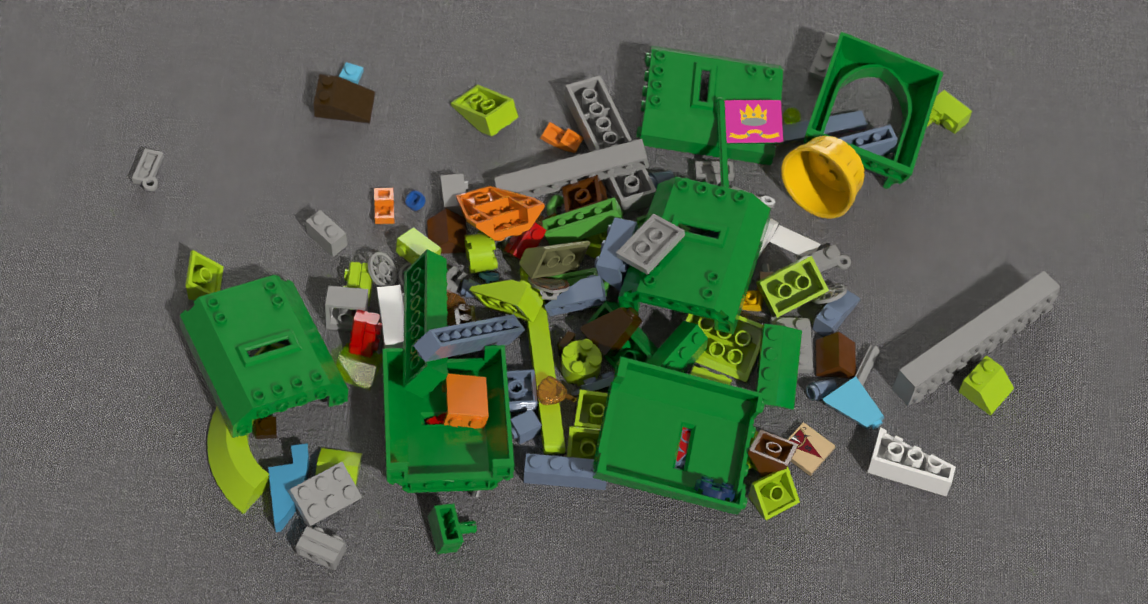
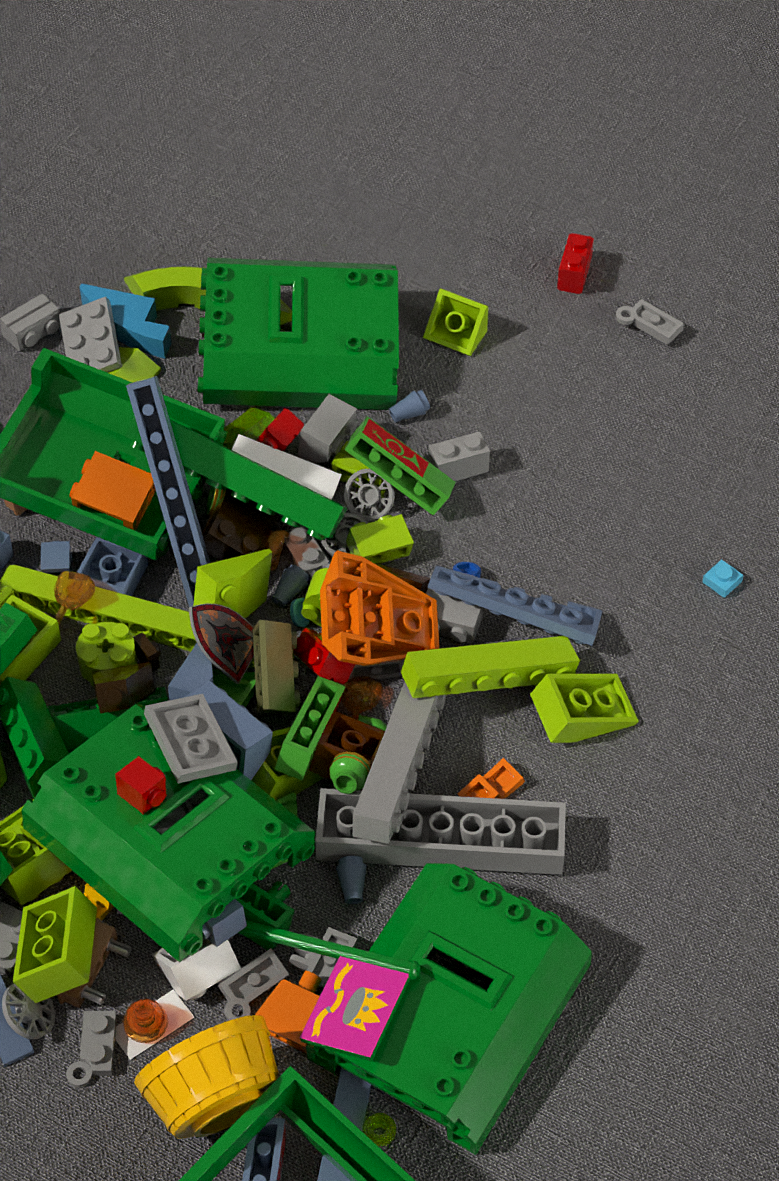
camera: 120 degrees right, 5 degrees down
(112, 226) = (575, 263): none -> red brick
(289, 274) = (410, 406): none -> sand blue cone
(343, 100) = (674, 548): dark brown slope -> none
(361, 249) = (400, 466): none -> bright green brick
(384, 205) = (481, 542): orange slope -> none
(434, 148) = (571, 621): none -> sand blue wing
(492, 150) = (487, 666): none -> lime brick
(593, 384) = (63, 661): sand blue hinge -> none
(608, 187) = (349, 772): none -> bright green piece
(698, 249) = (141, 785): none -> red brick
(756, 172) = (290, 1008): none -> orange torso
(797, 242) = (145, 1021): none -> clear orange brick

